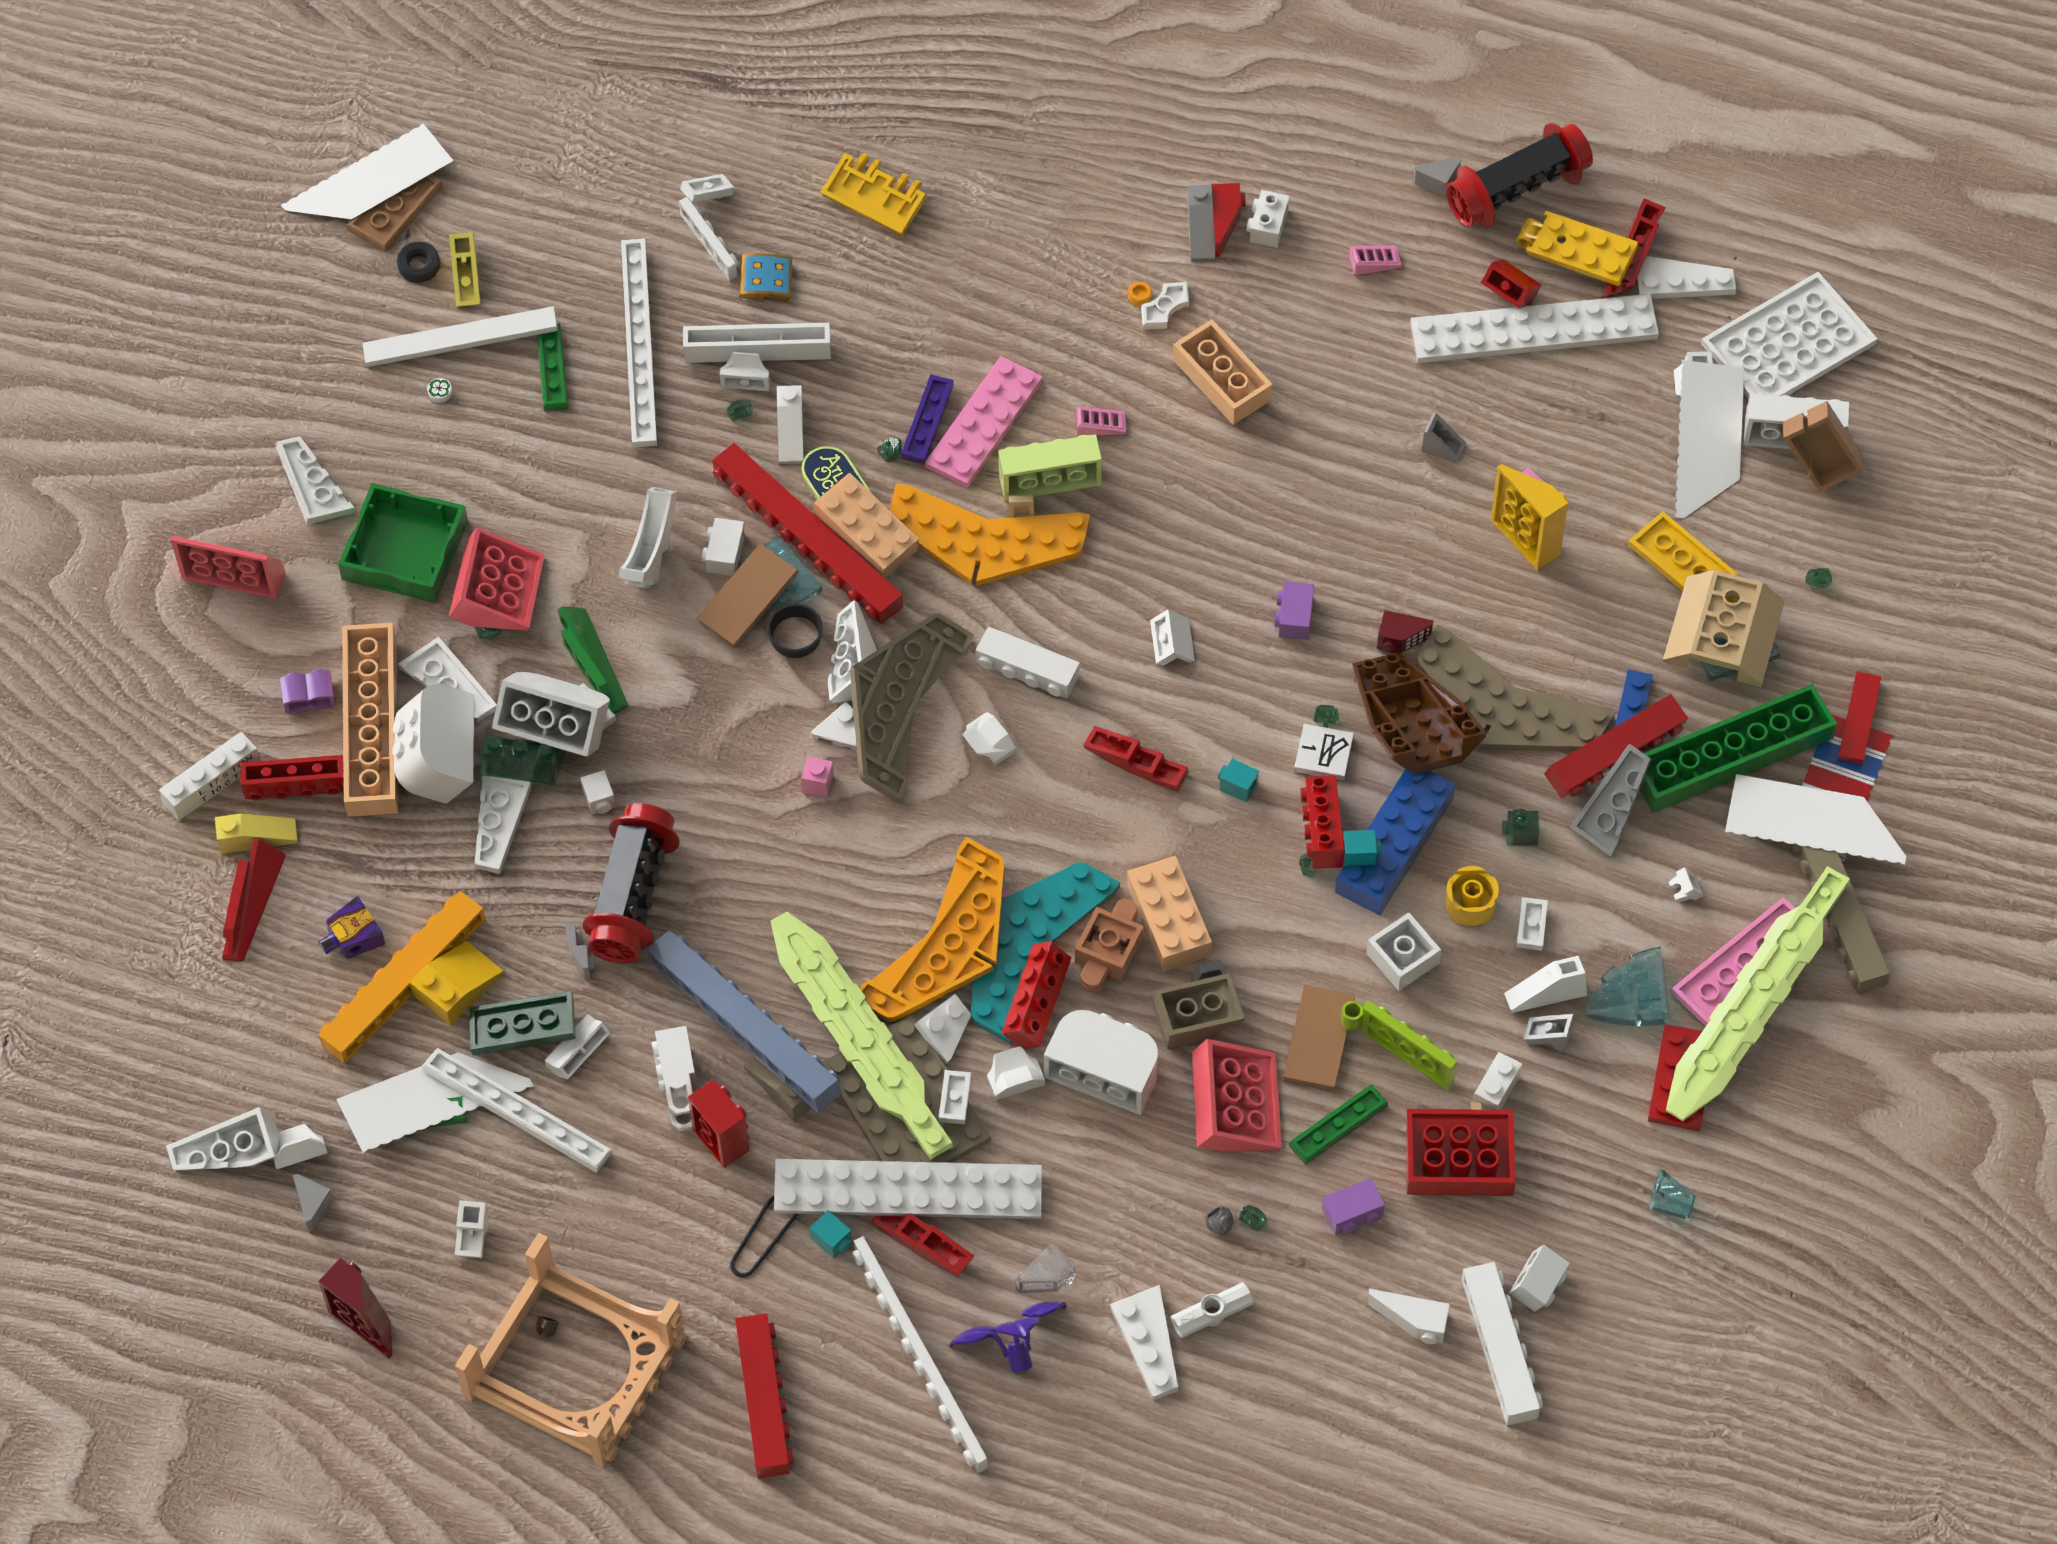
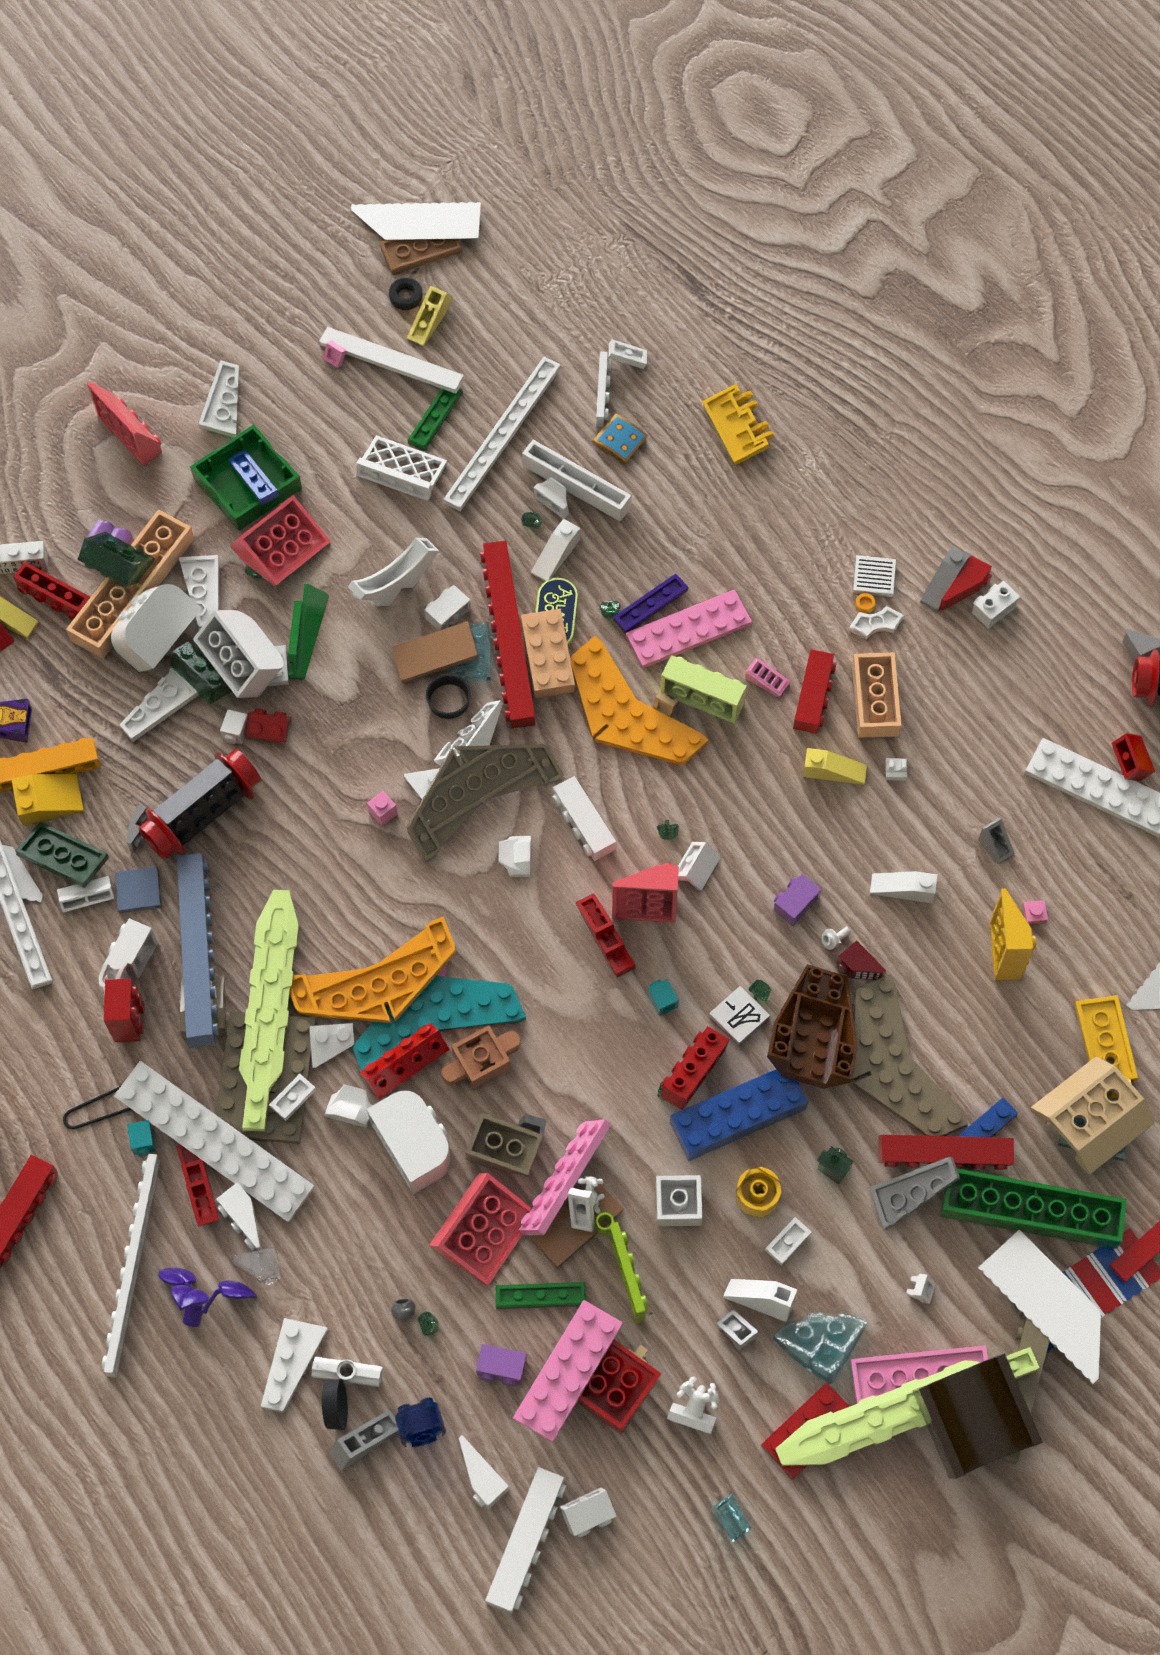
camera: 35 degrees right, 5 degrees up
(342, 700) = (114, 558): none -> clear green slope
(394, 365) = (334, 354): none -> bright pink plate
(416, 535) = (253, 477): none -> plate
(439, 390) = (351, 388): white tile -> none
(562, 451) = (395, 477): none -> white fence
(627, 1010) = (138, 889): none -> sand blue tile
(631, 771) = (267, 726): none -> red bracket
(987, 1236) = (241, 1211): none -> white slope
(1119, 624) = (668, 831): none -> clear green piece
(1128, 262) = (874, 576): none -> white tile
(1157, 406) = (813, 691): none -> red brick
(1160, 686) = (647, 895): none -> coral slope
(1169, 913) = (540, 1062): light nougat brick -> none
(1227, 1342) = (335, 1405): none -> black tyre
(1231, 466) = (833, 767): none -> light yellow slope
(1278, 1359) = (363, 1440): none -> light grey slope
(1280, 999) = (564, 1177): none -> bright pink plate
(1293, 432) = (896, 769): none -> white tile
(1320, 1008) = (583, 1203): none -> white piece
(1321, 1305) = (419, 1422): none -> clear blue brick
(1356, 626) = (833, 938): none -> white plate
(1360, 847) = (699, 1105): teal brick -> none
(1365, 252) = (1047, 684): bright pink slope -> none
(1388, 534) = (905, 885): none -> white slope
(1426, 1163) = (567, 1371): none -> bright pink plate
(1498, 1082) = (670, 1345): white brick -> none
(1564, 1121) = (693, 1414): none -> white piece
(1829, 951) = (977, 1416): none -> dark brown piece

